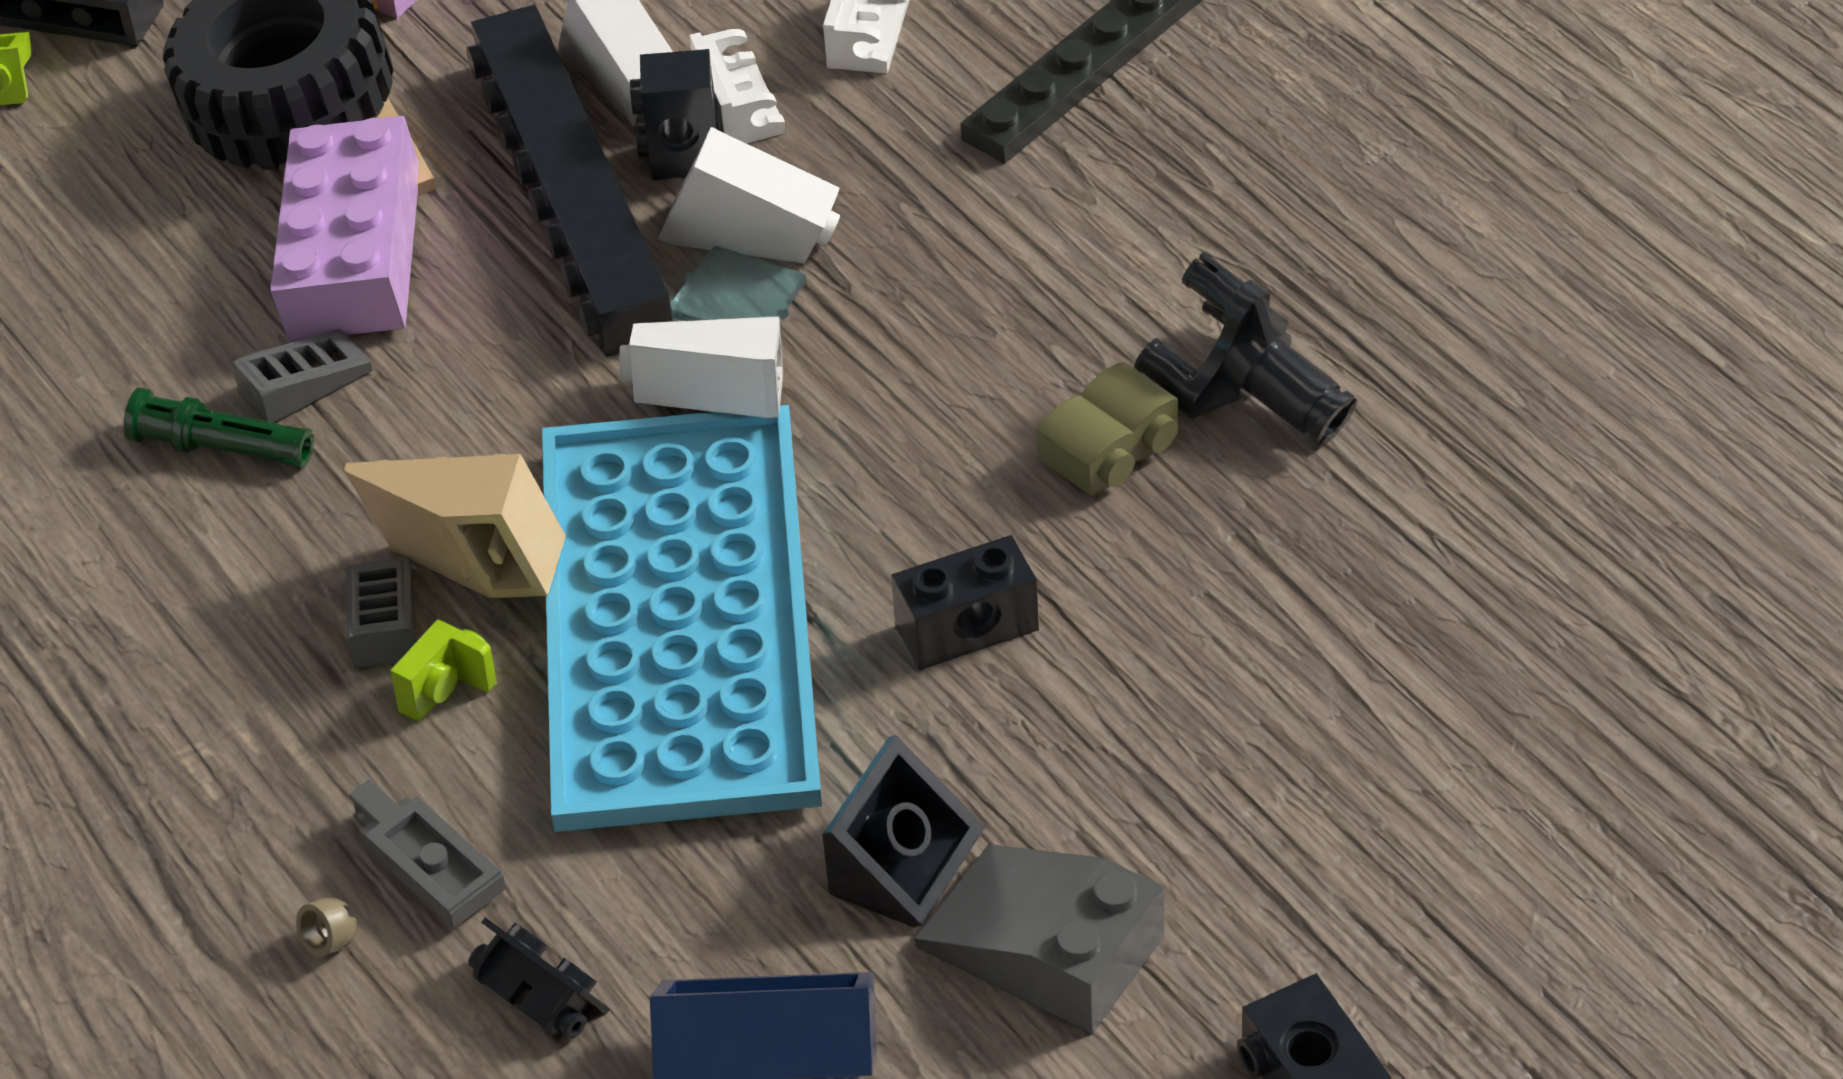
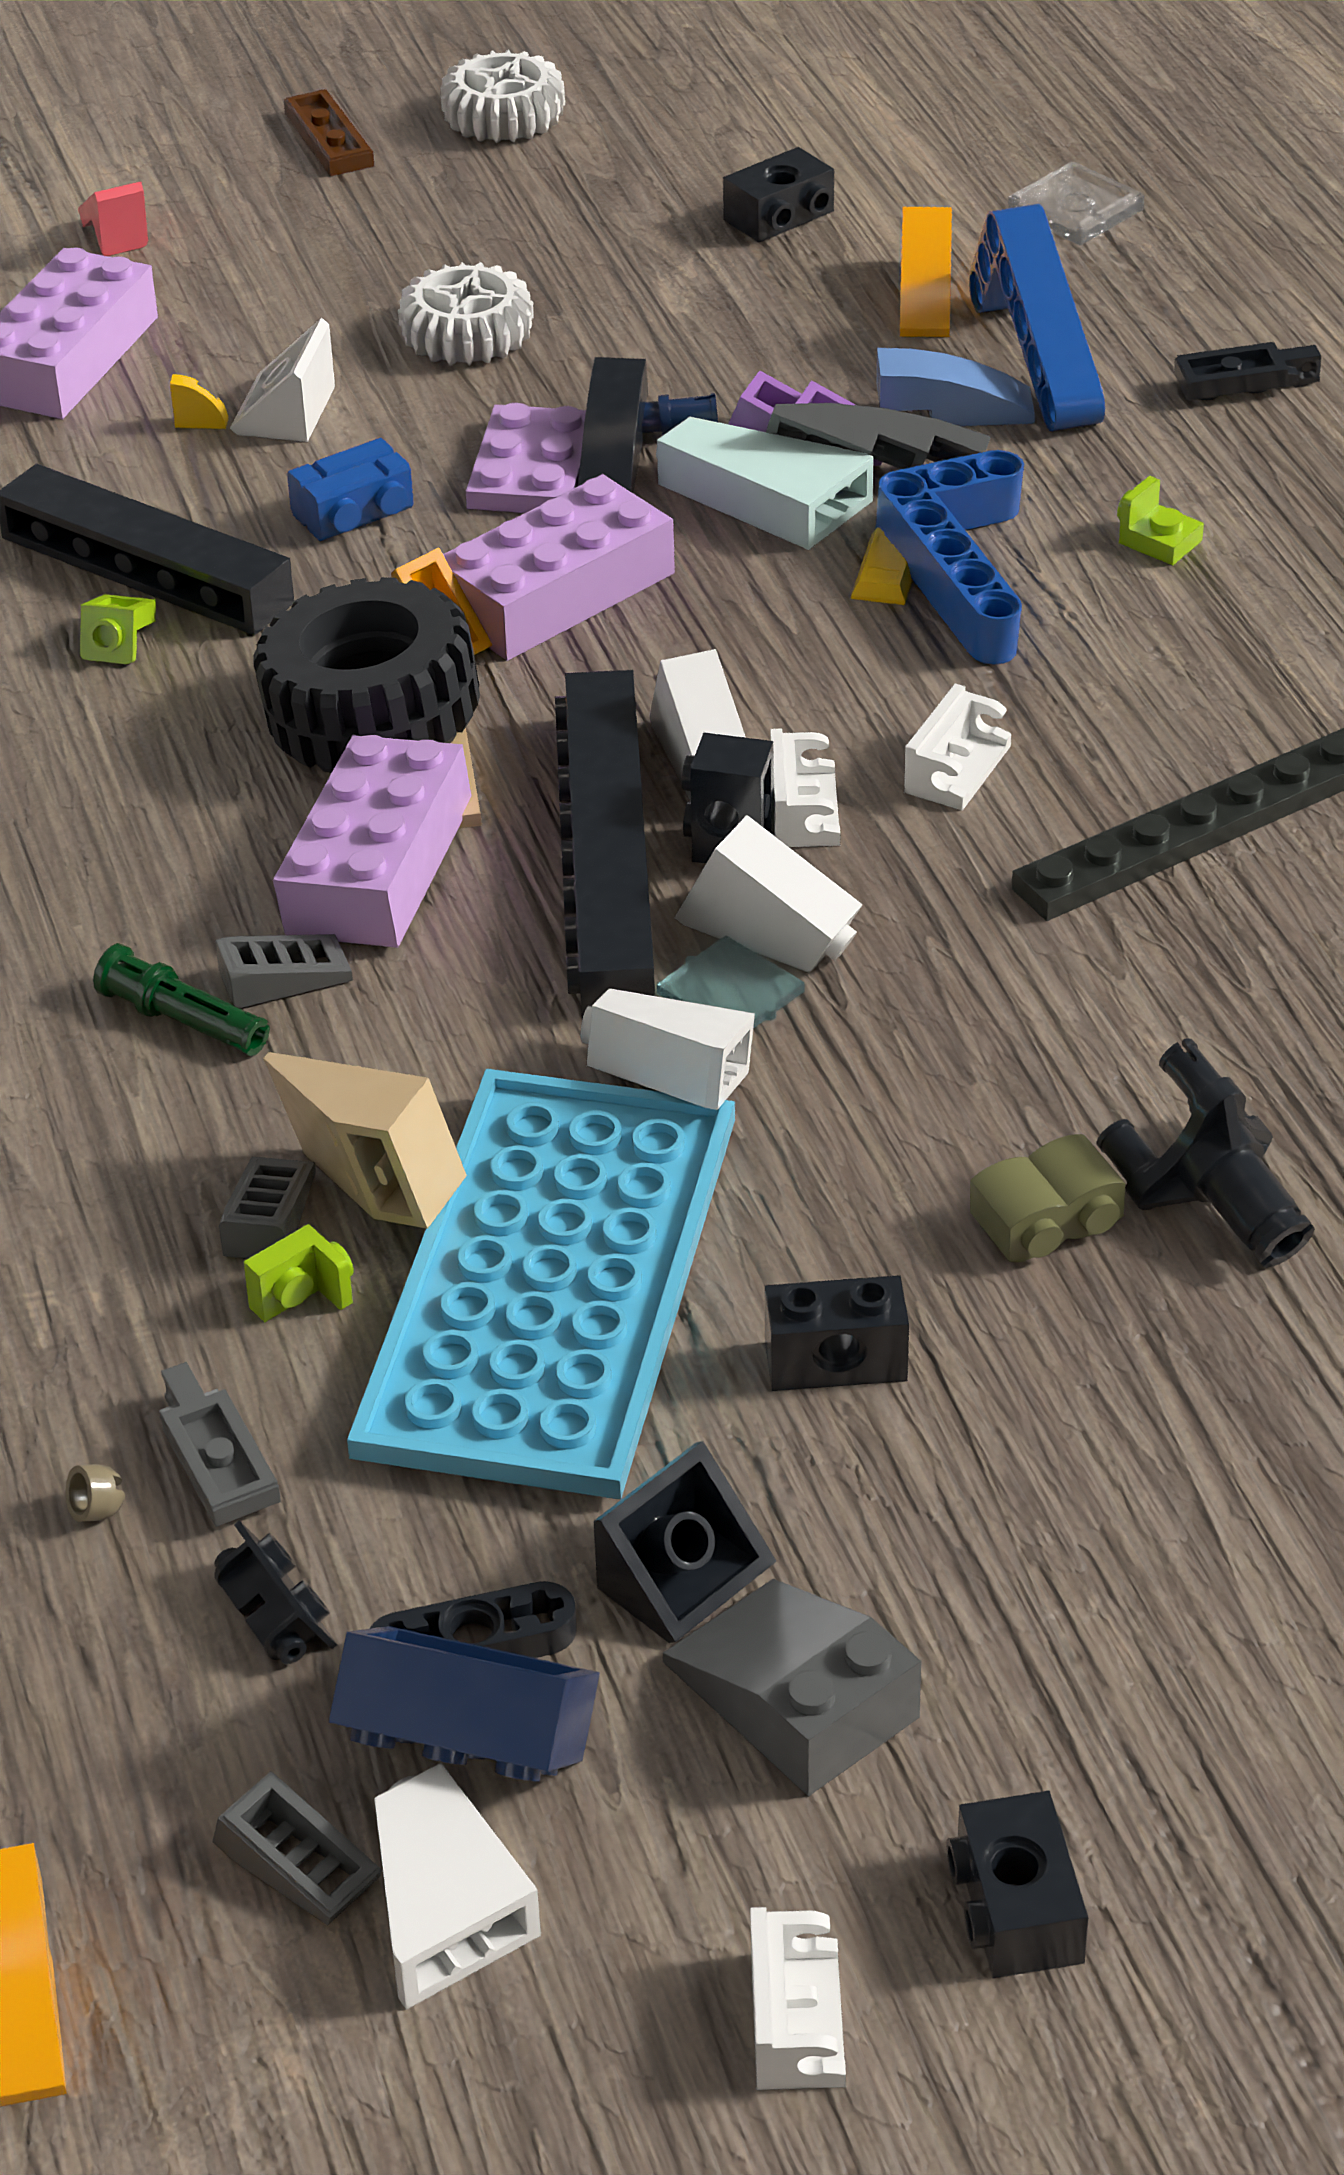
camera: 15 degrees right, 5 degrees down
(745, 939) = (491, 1609): none -> black beam

